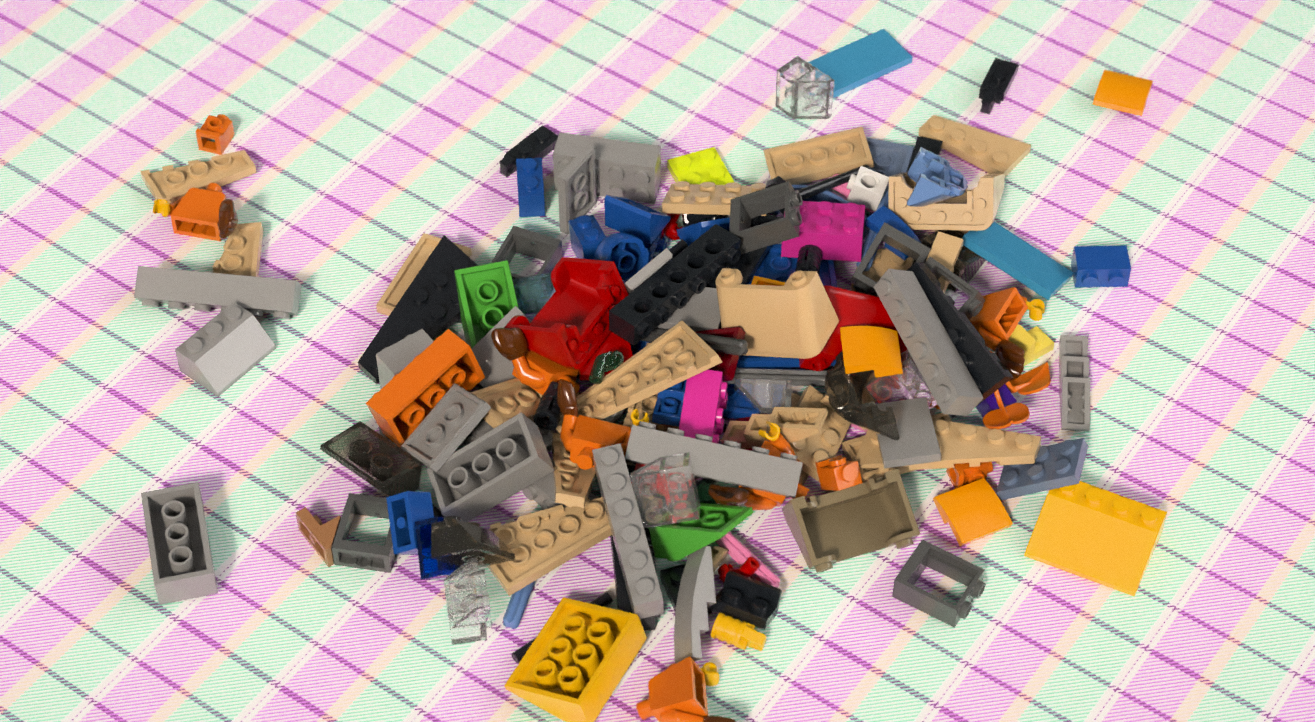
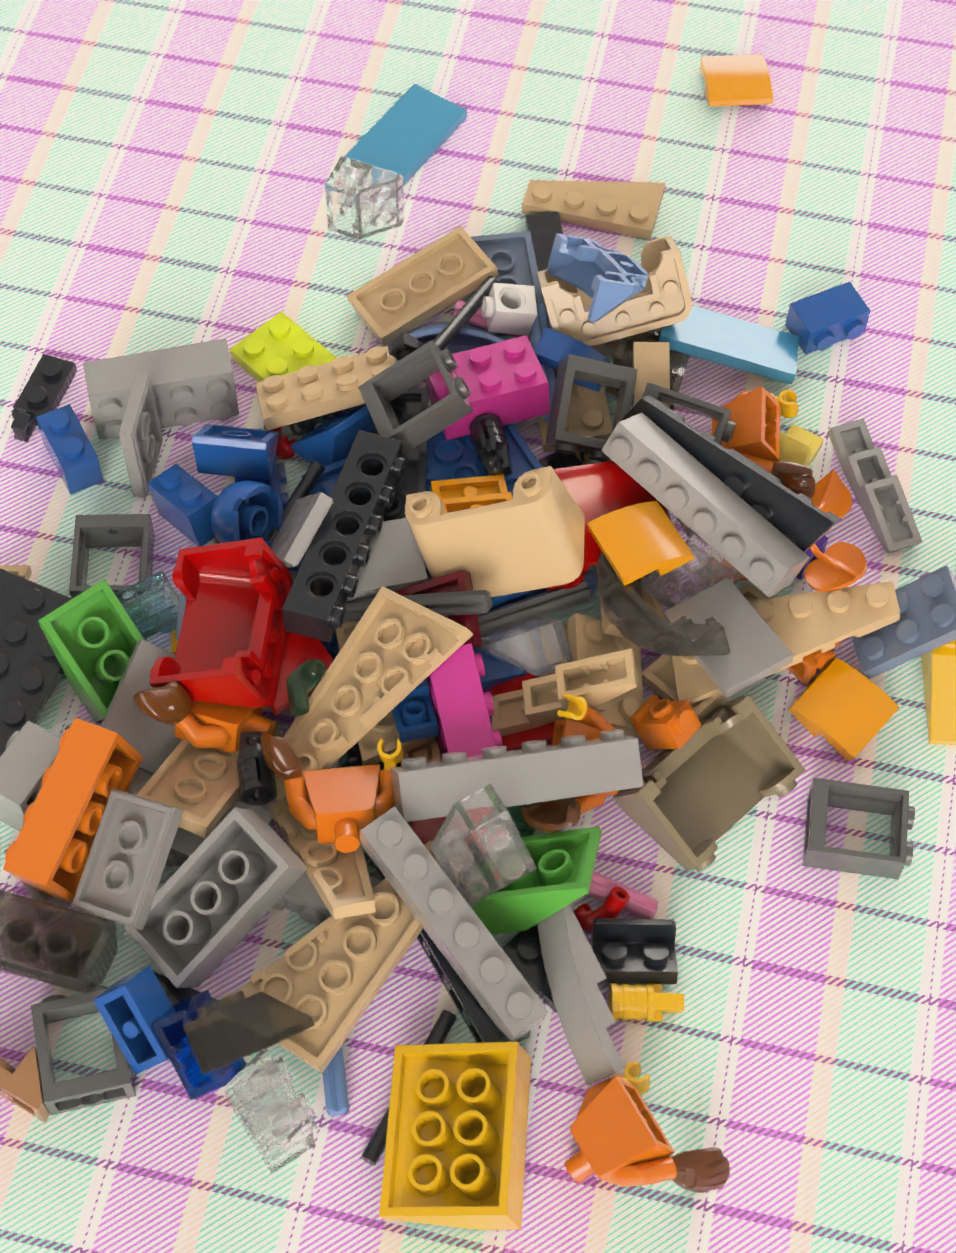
camera: 25 degrees left, 10 degrees up
(997, 83) = (585, 114): black hinge -> none

